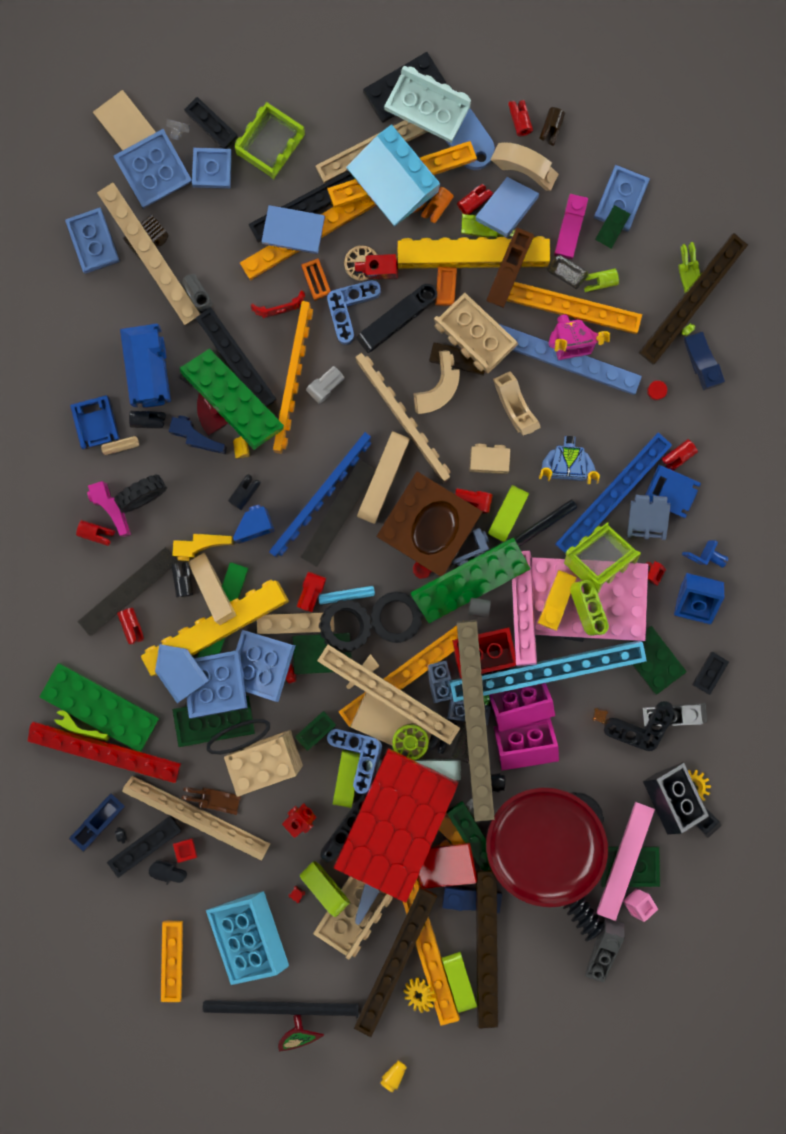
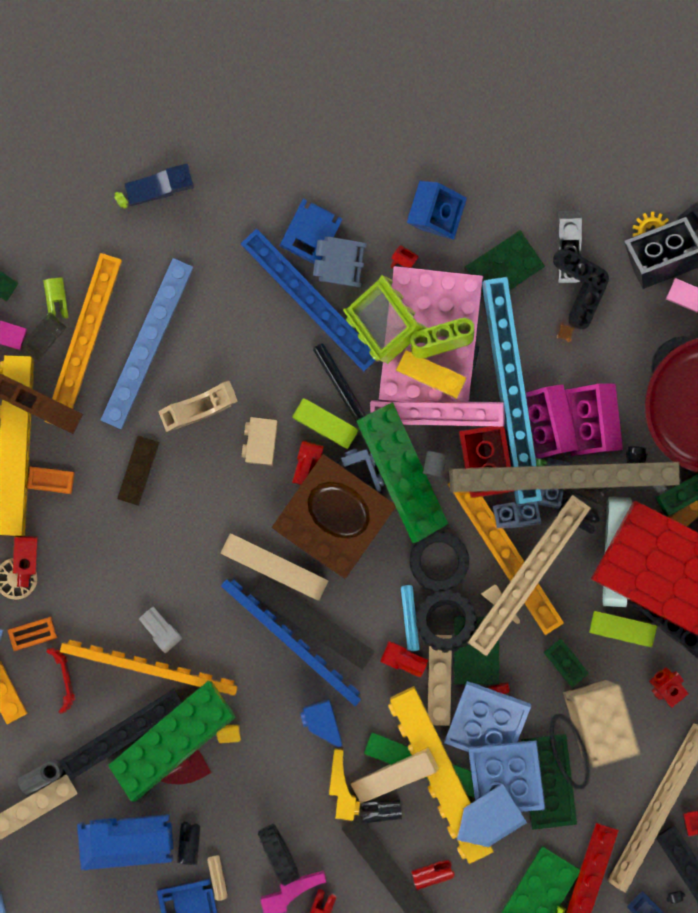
camera: 85 degrees left, 0 degrees up
(184, 428) = (202, 799): dark blue slope -> none
(214, 799) = (640, 785): reddish brown arm -> none
(241, 495) = (286, 736): black hinge -> none
(345, 301) = (61, 600): medium blue beam -> none
(362, 748) = (590, 607): medium blue beam -> none
(382, 722) = (565, 576): tan tile -> none
(397, 317) = (85, 540): black piece -> none
(408, 423) = (196, 544): tan plate -> none
(410, 741) = (584, 553): lime wheel -> none
(420, 571) = (387, 529): red tile -> none
(443, 391) = (178, 491): tan arch -> none
(475, 333) = (111, 449): tan bracket -> none
(569, 463) = (270, 349): torso -> none
(574, 338) = (124, 334): dark pink torso -> none
(657, 390) = (190, 240): red tile -> none
(680, 455) = (269, 220): red hinge -> none
(688, 270) = (56, 192): lime arm -> none
(693, 298) = (85, 192): dark brown plate -> none
(707, 555) = (386, 194): blue bracket -> none
(710, 673) = (523, 202): black plate -> none

